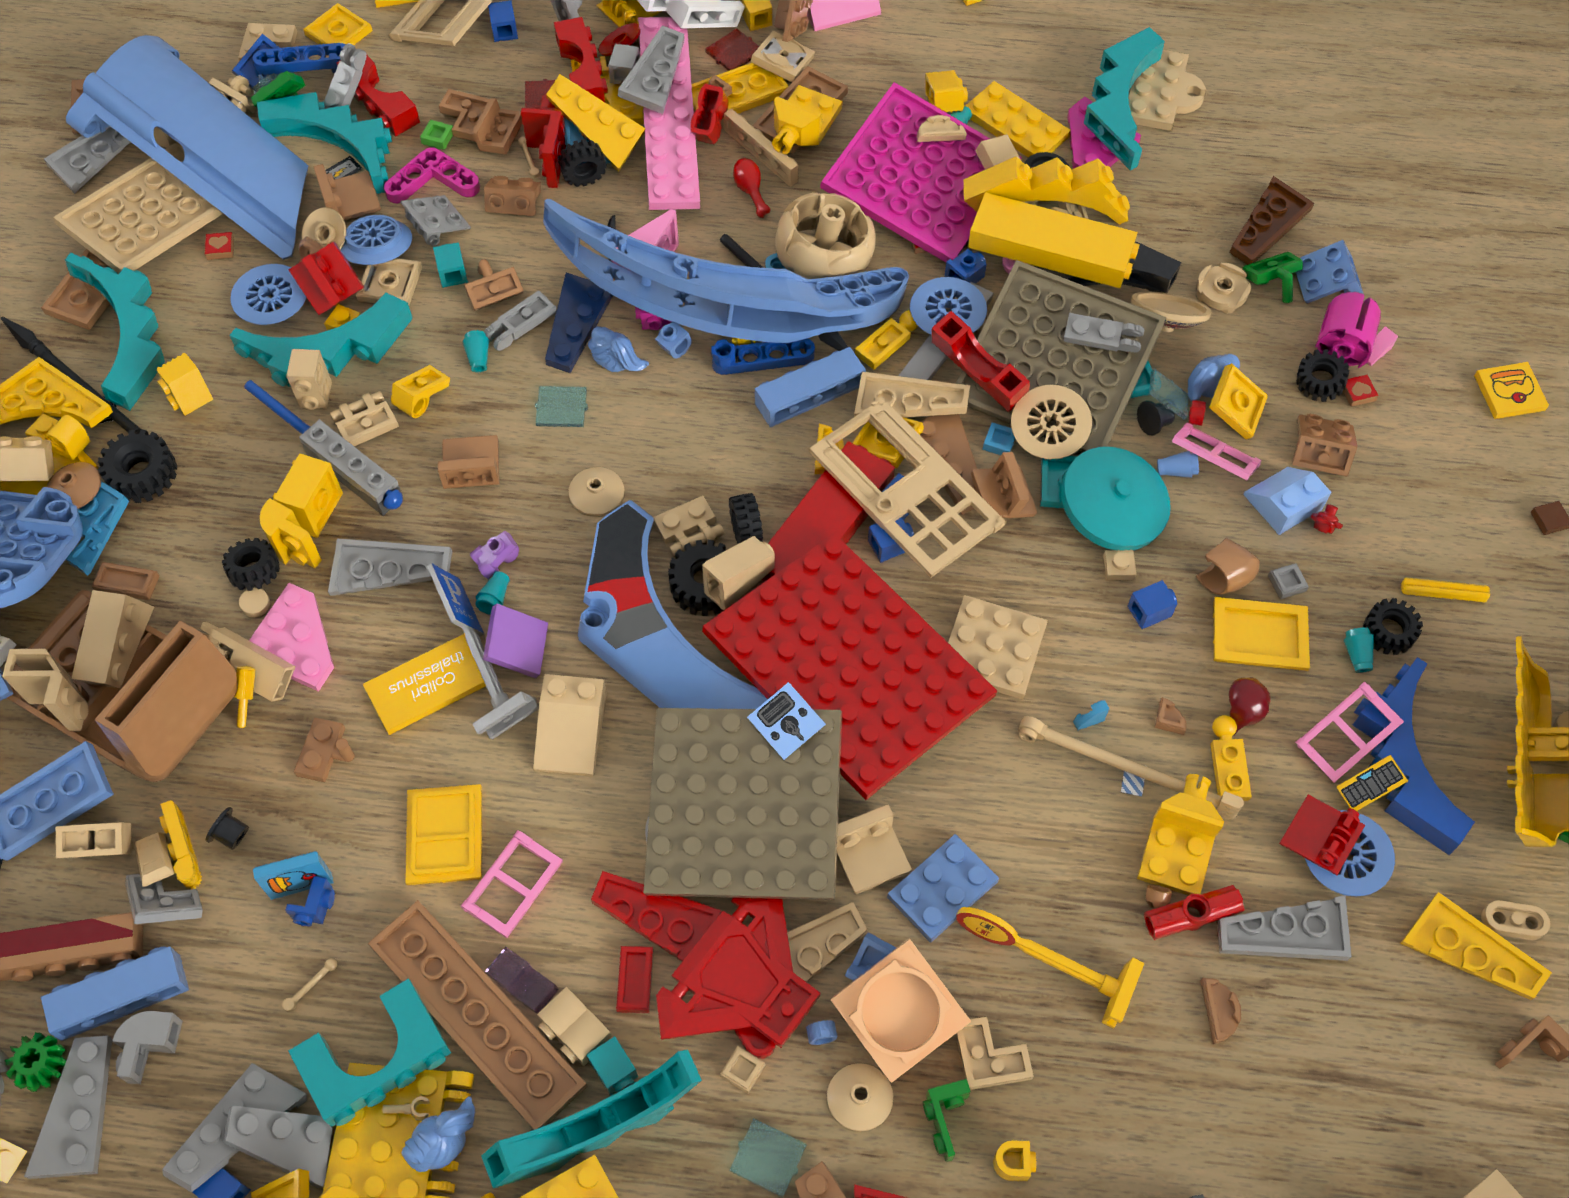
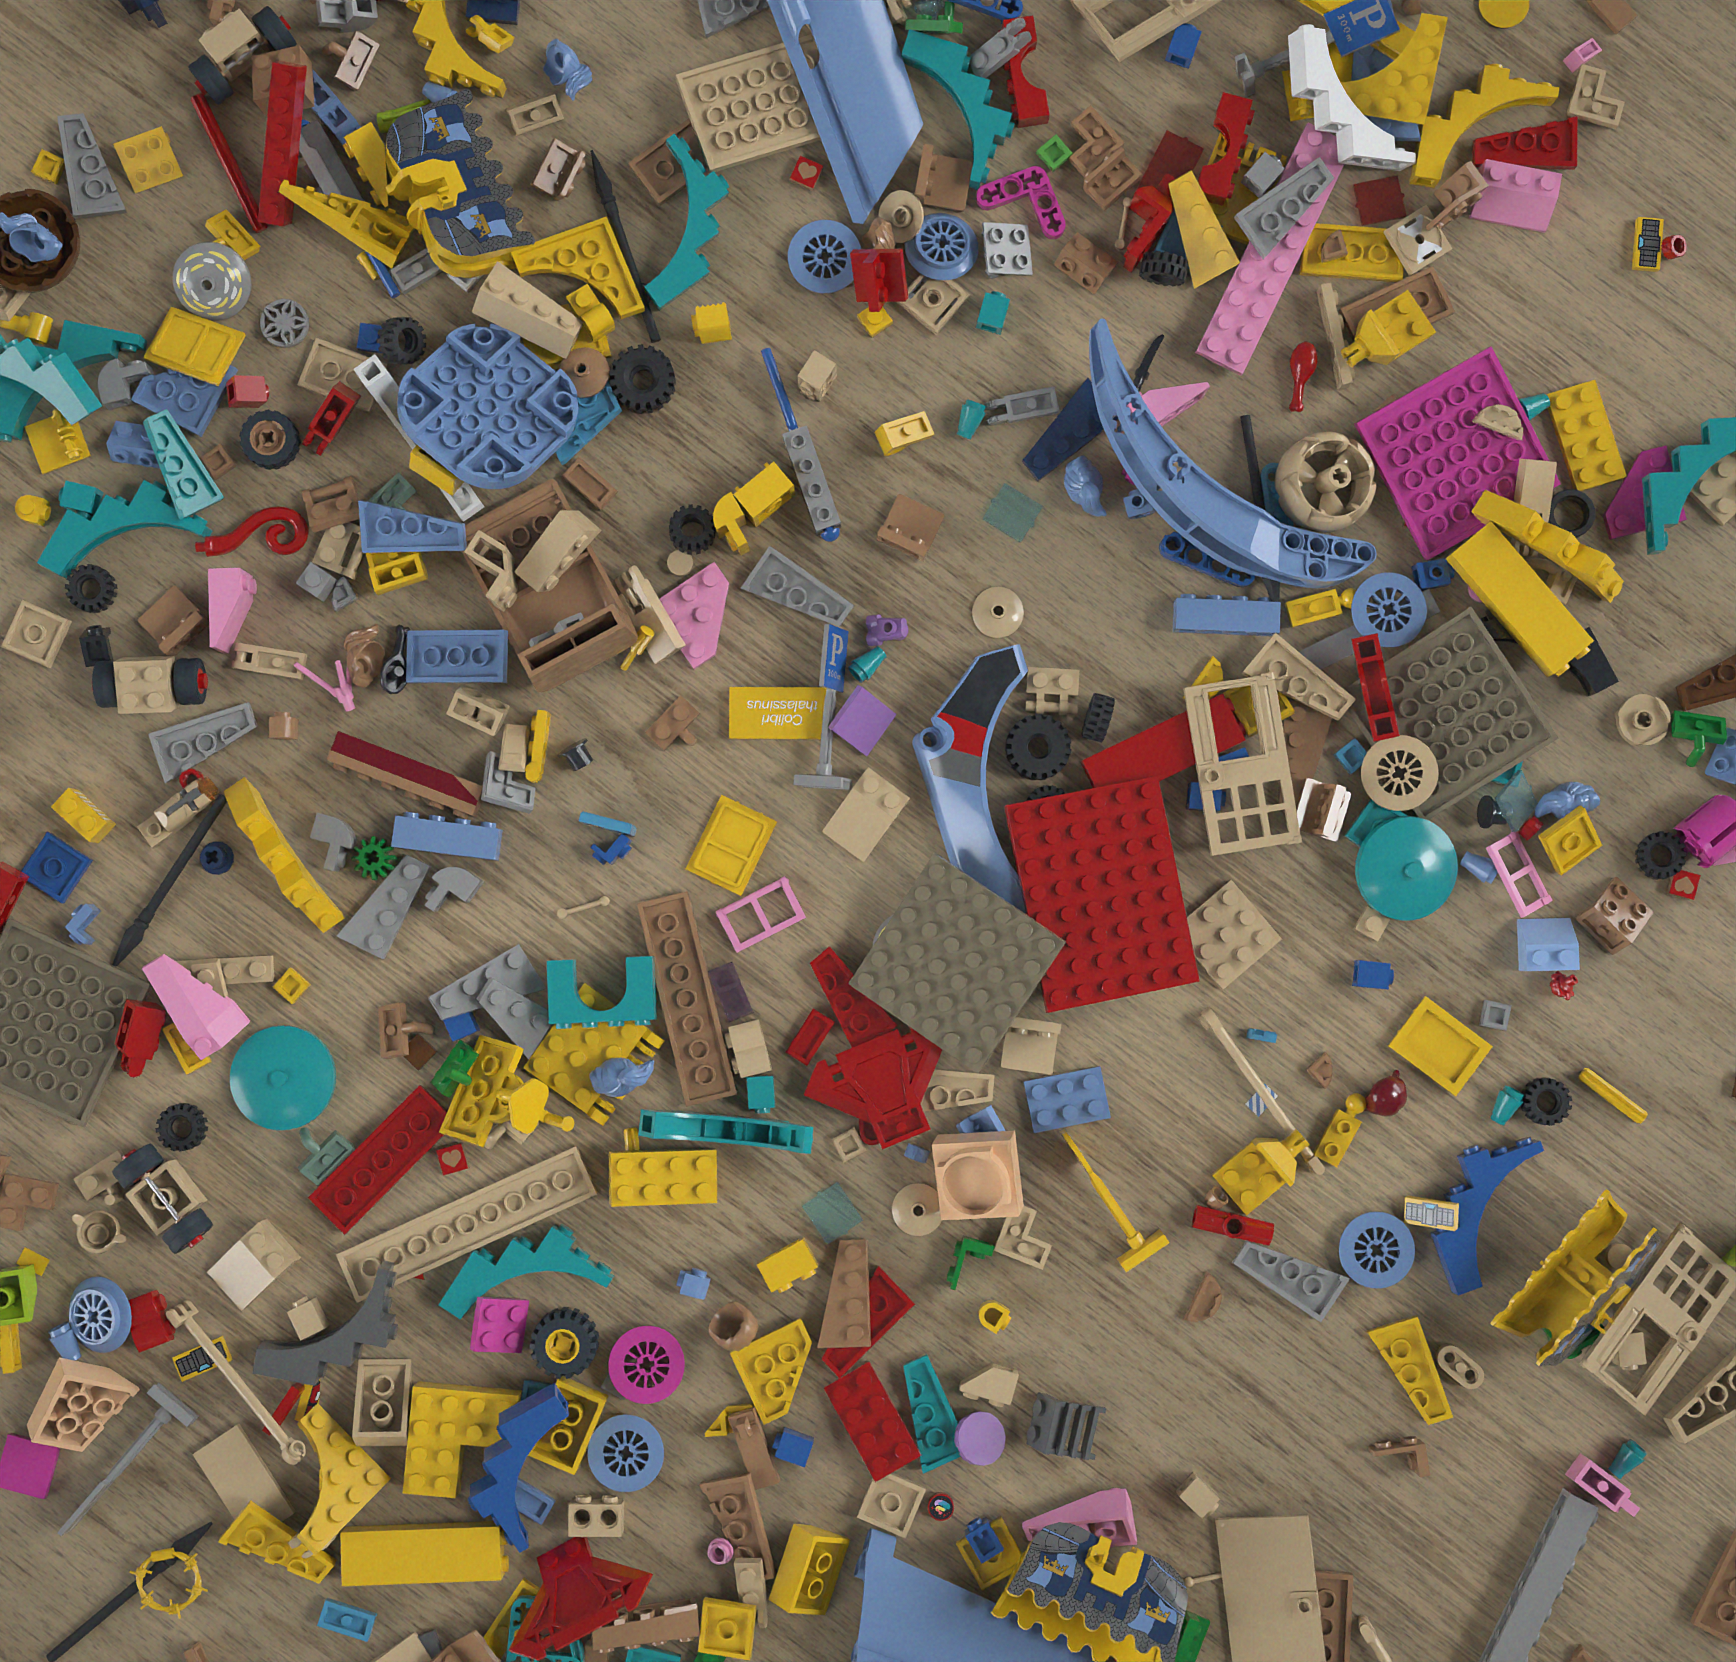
camera: 30 degrees right, 25 degrees up
(344, 168) = (952, 142): sticker -> none
(365, 336) = (886, 350): teal arch -> none
(365, 424) = (844, 442): tan plate -> none
(408, 1108) = (607, 1041): tan hand -> none
(492, 287) = (1017, 359): medium nougat plate -> none
(623, 35) = (1278, 133): red dish -> none
(710, 112) = (1302, 285): red brick -> none
(737, 571) = (1063, 769): tan slope -> none
(786, 721) = (1020, 927): light blue sticker -> none
(945, 90) = (1538, 373): yellow brick -> none
(1102, 333) = (1493, 719): light grey hinge -> none
(1178, 310) = (1578, 720): tan dish -> none
(1230, 568) = (1453, 981): medium nougat piece -> none
(1323, 834) = (1365, 1227): red hinge -> none
(1333, 716) = (1446, 1184): bright pink window -> none

